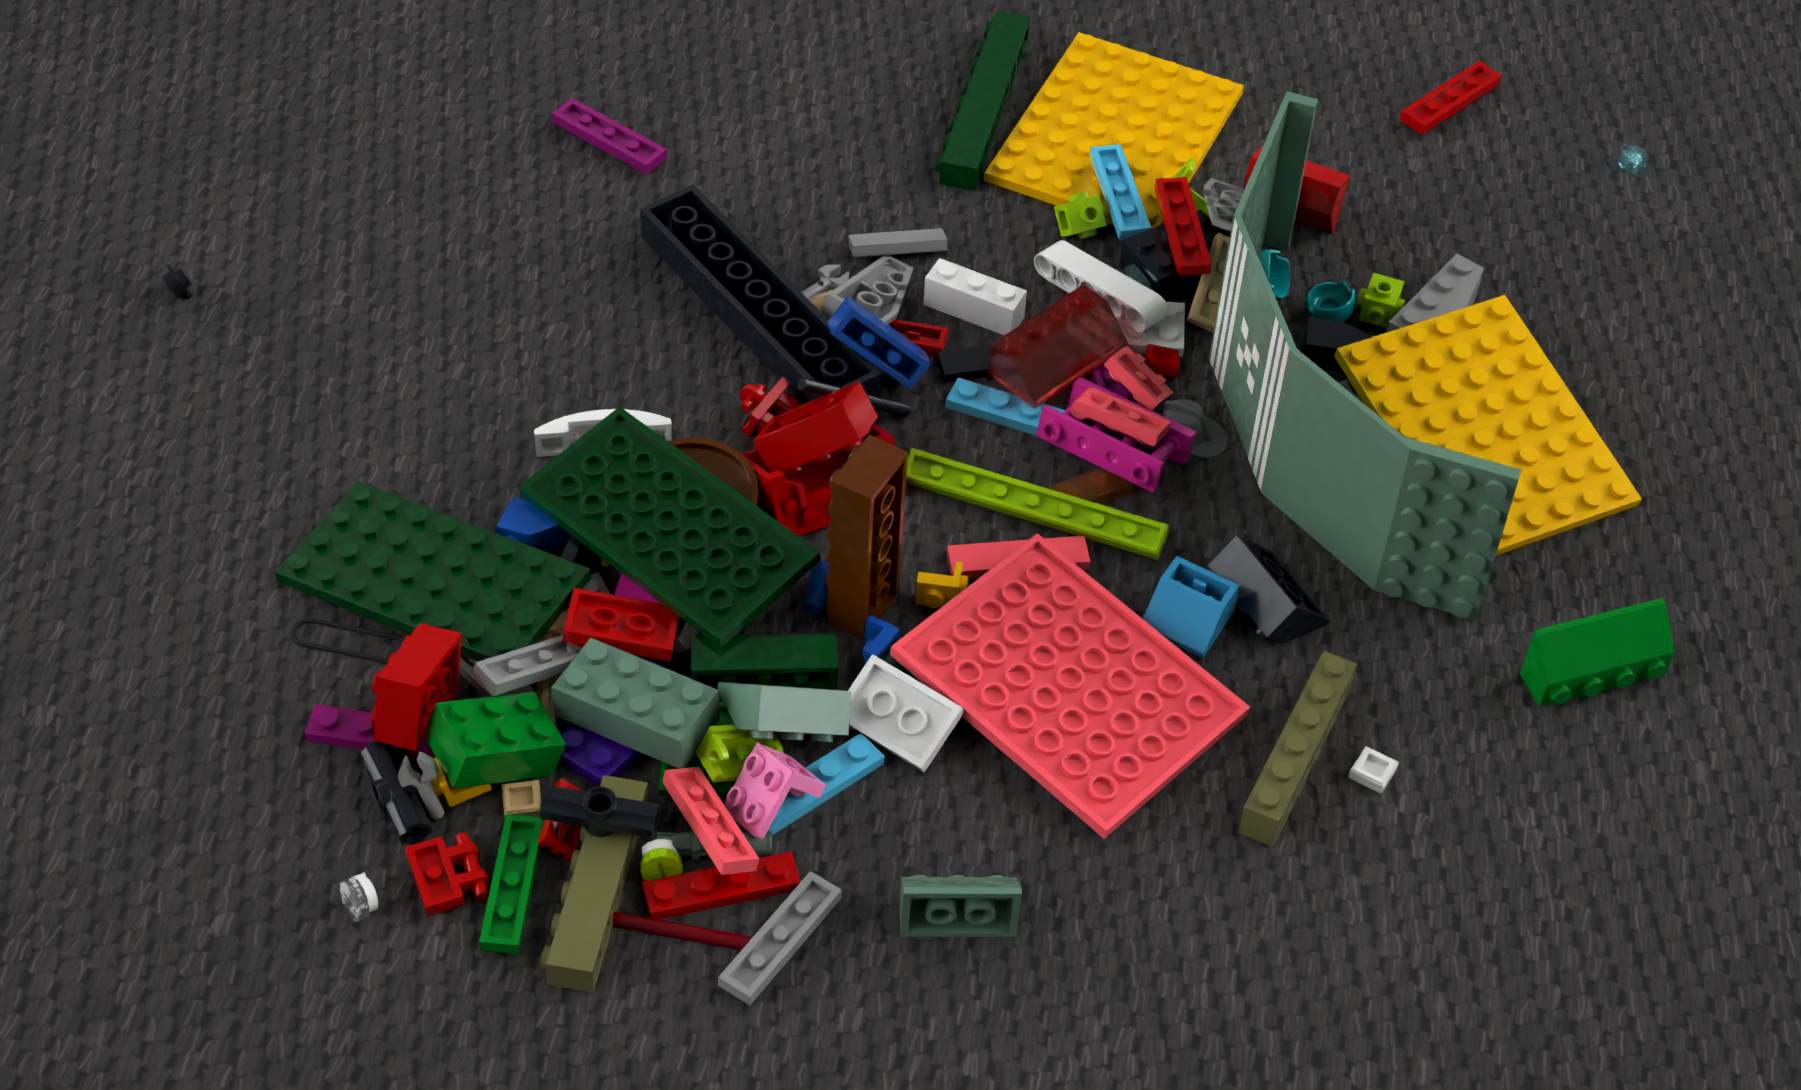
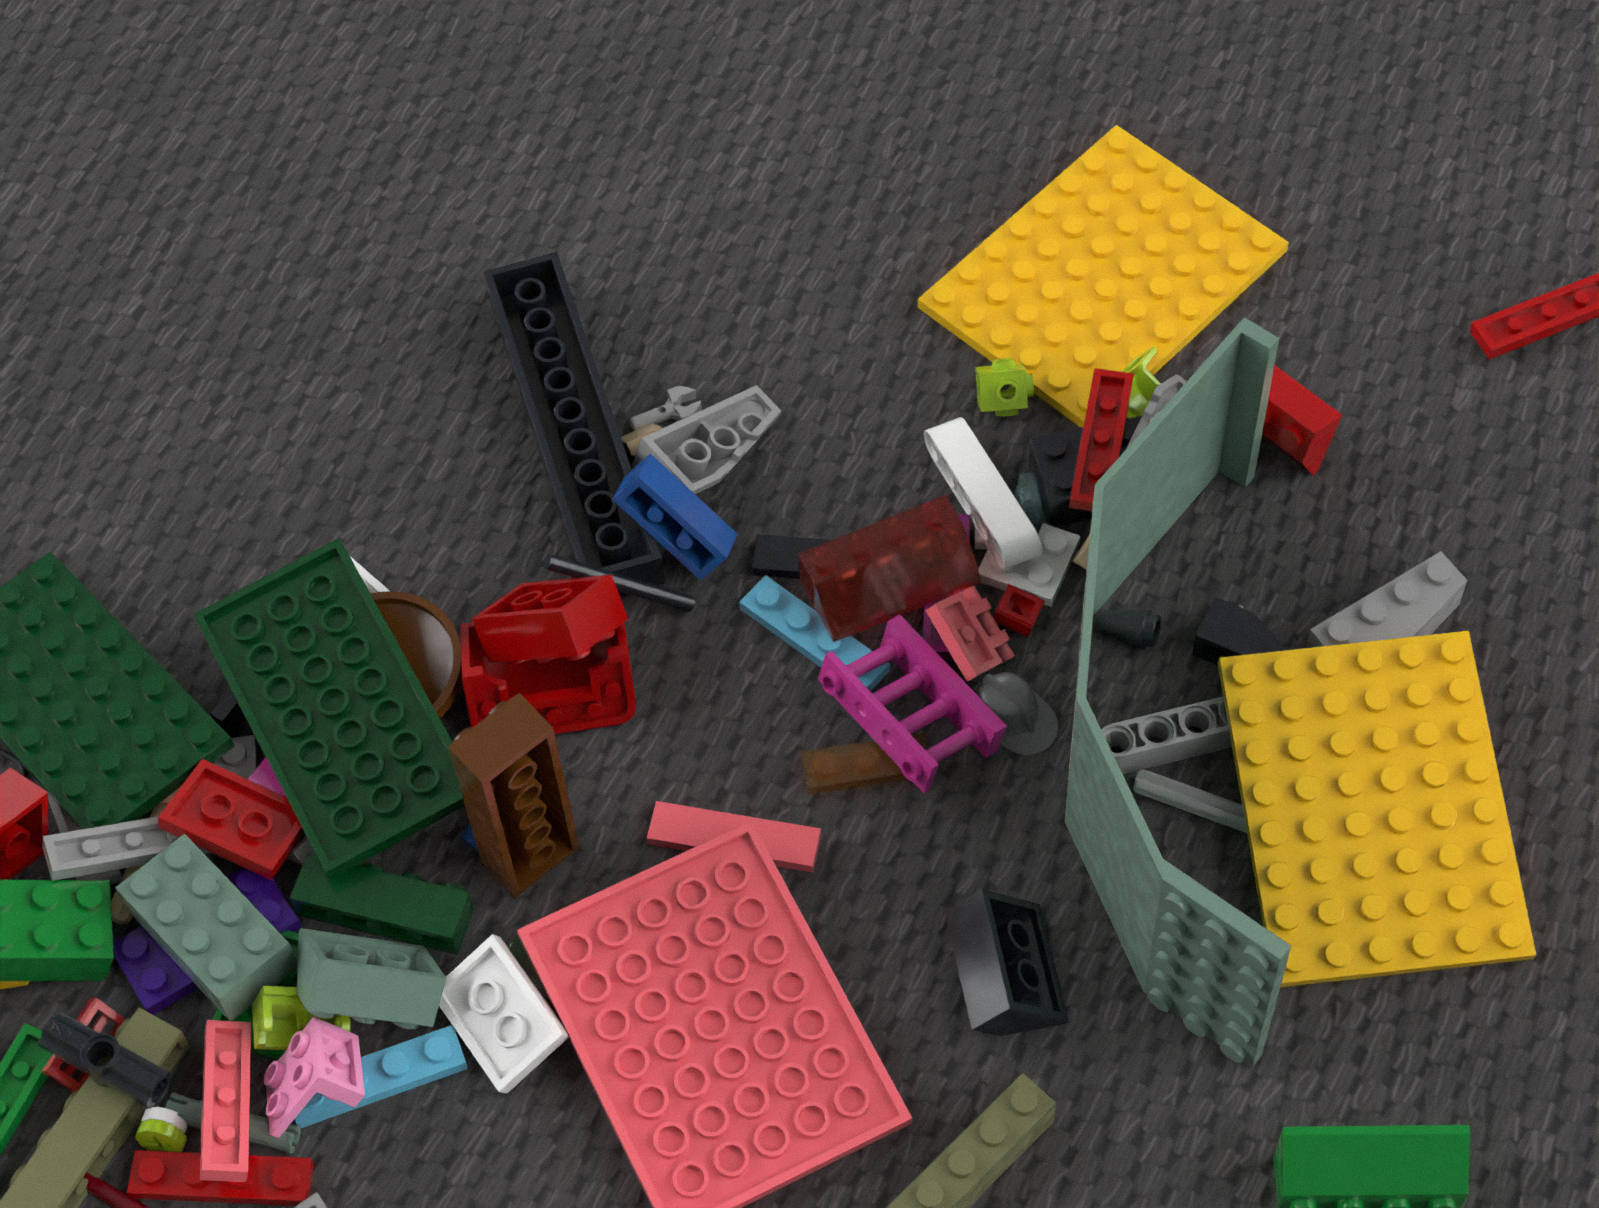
camera: 25 degrees right, 10 degrees up
(522, 798) = (53, 999): tan tile -> none
(531, 527) = (192, 661): blue slope -> none
(558, 434) = (286, 545): white slope -> none
(609, 136) = (507, 157): magenta plate -> none
(761, 404) = (524, 561): red hips -> none
(879, 637) = (529, 909): blue bracket -> none
(897, 242) = (774, 373): light grey tile -> none
(914, 330) = (735, 517): red tile -> none
(938, 589) = (616, 860): yellow bracket -> none
(974, 297) = (828, 472): white brick -> none
(983, 101) = (958, 199): dark green brick -> none
(1036, 504) = (781, 772): lime tile -> none
(1119, 190) = (1059, 366): medium azure plate -> none
(1120, 416) = (918, 686): coral plate -> none
(1191, 606) = (897, 964): dark azure slope -> none
(1276, 270) = (1201, 522): teal hair -> none
(1331, 301) = (1259, 578): teal hair -> none
(1380, 300) = (1321, 591): lime brick -> none

